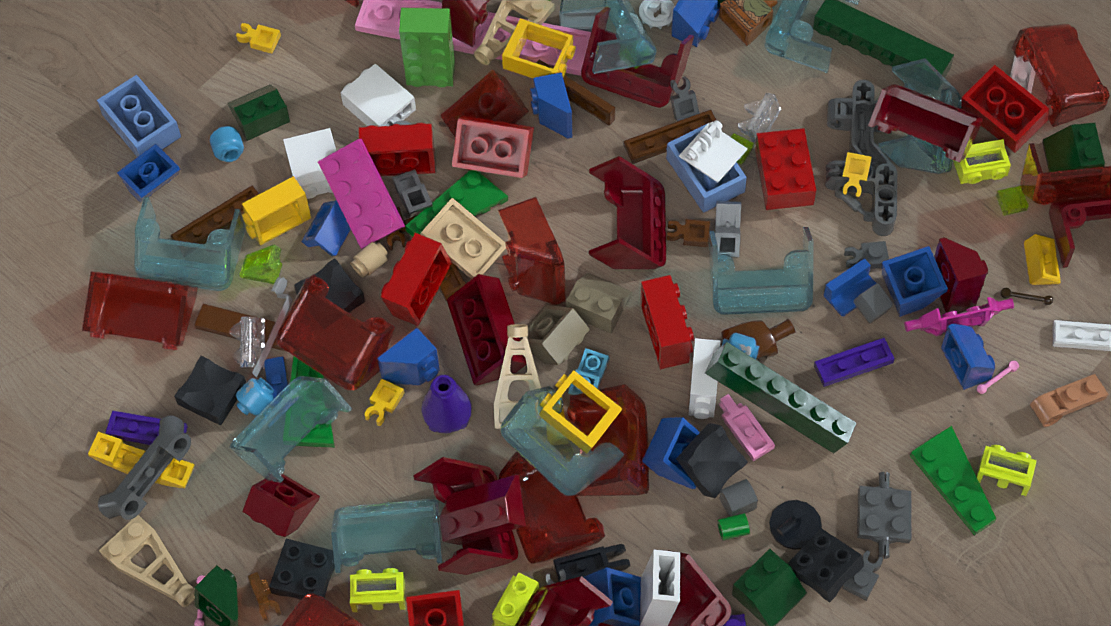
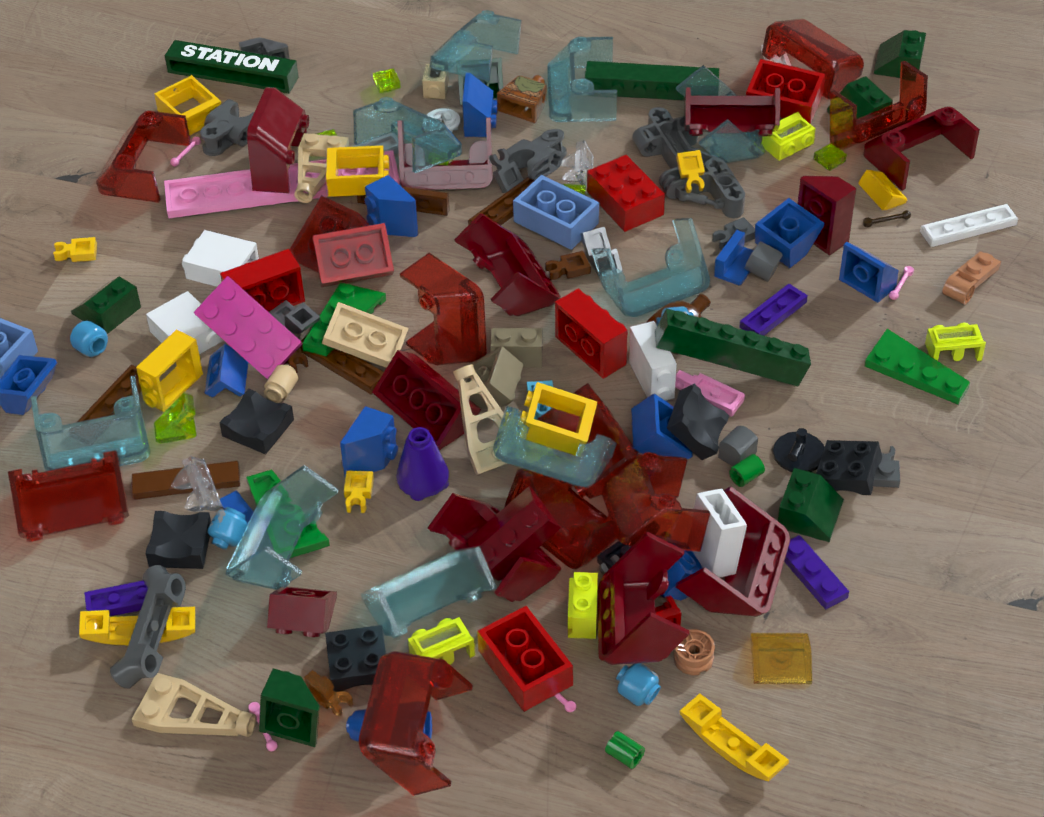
camera: 25 degrees left, 15 degrees down
(278, 287) = (203, 435): light grey piece -> none
(333, 338) = (278, 442): clear red windscreen -> none
(416, 279) = (338, 376): red brick -> none
(427, 46) = (252, 193): bright green brick -> none
(595, 550) = (644, 500): none -> clear red windscreen
(713, 151) = (558, 190): white hinge -> none
(726, 91) = (541, 155): none -> dark grey piece
(884, 514) = (873, 414): dark grey plate -> none
(976, 315) = (830, 251): dark pink plate -> none

